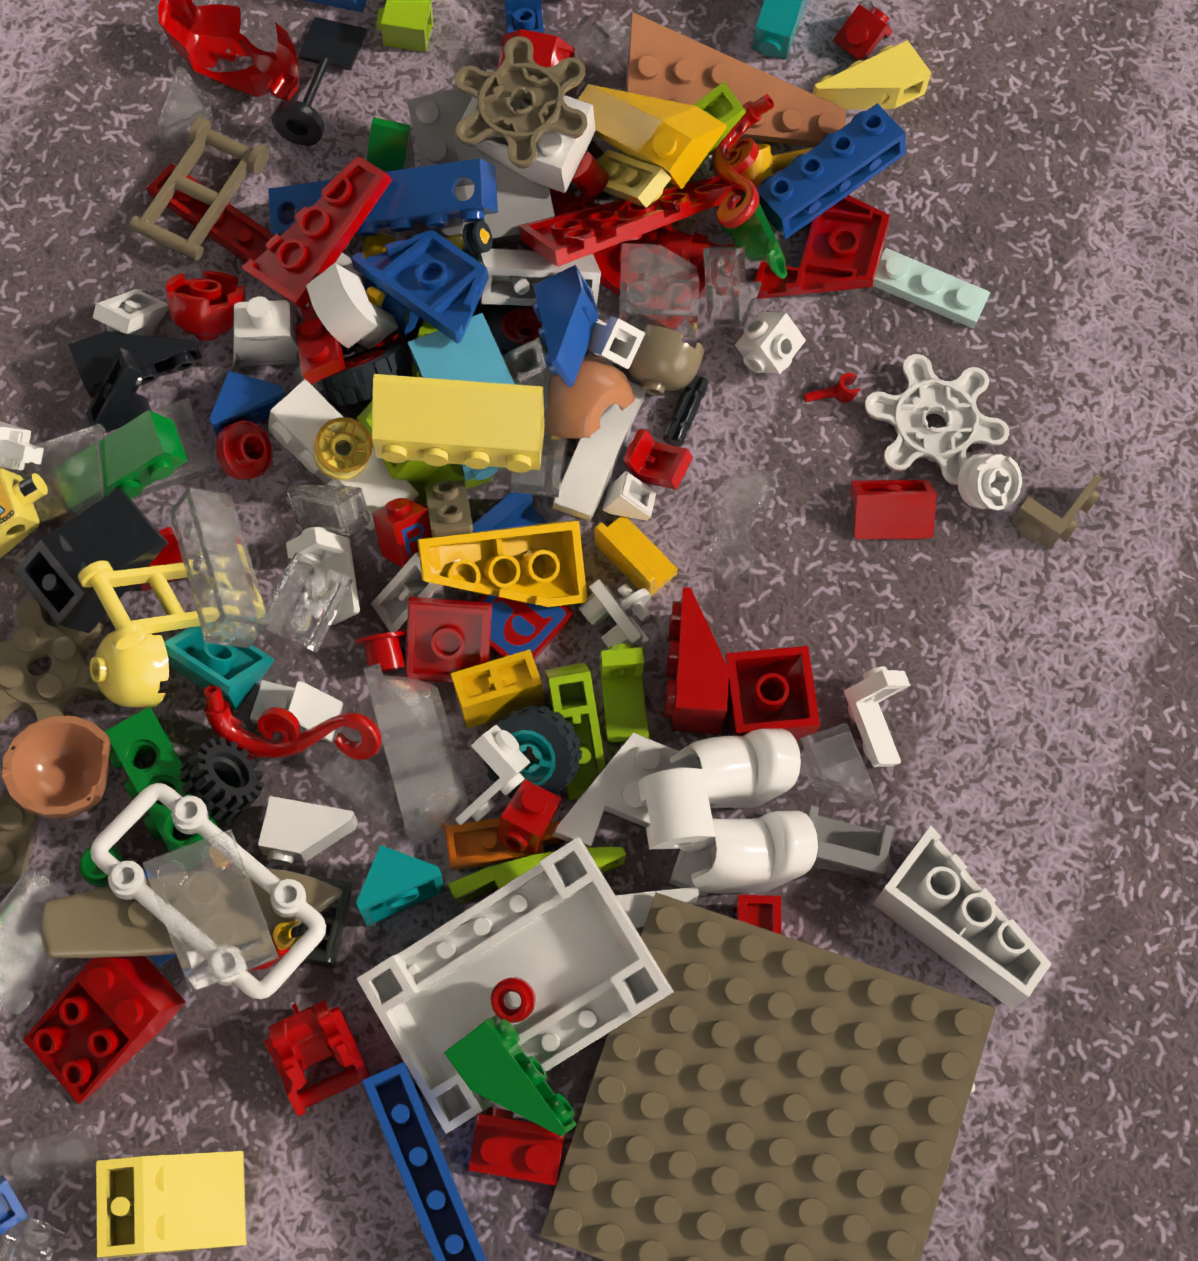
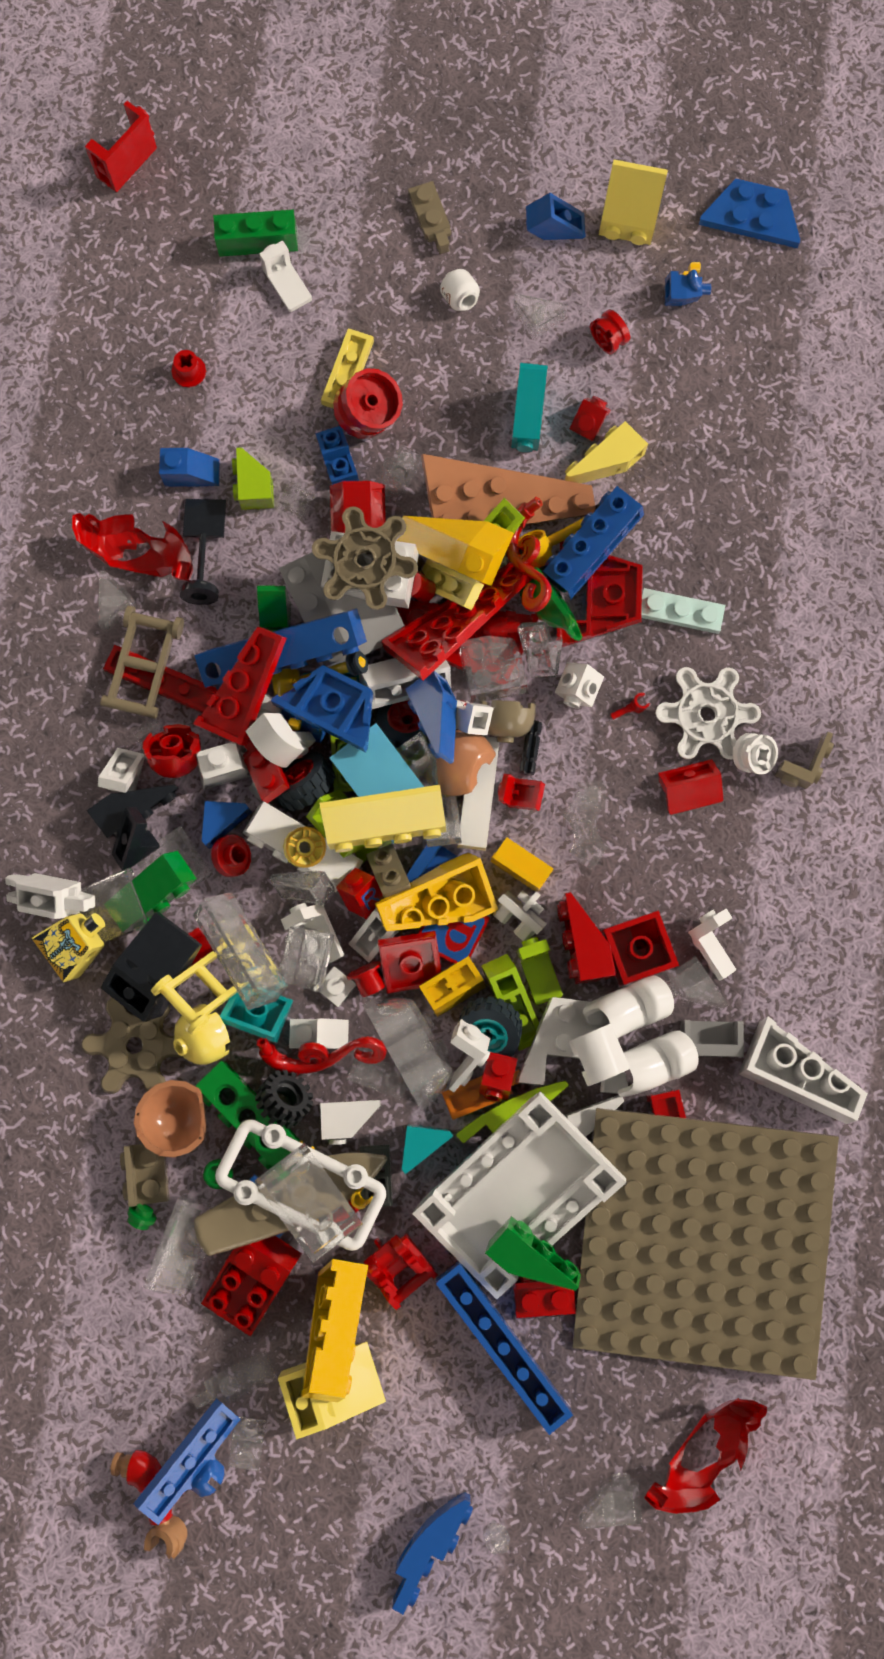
camera: 10 degrees left, 10 degrees up
(197, 1110) = (334, 1330): none -> yellow wedge
(339, 655) = (337, 987): none -> white plate
(500, 1002) = (516, 1212): red plate -> none
(629, 498) = (507, 824): white slope -> none

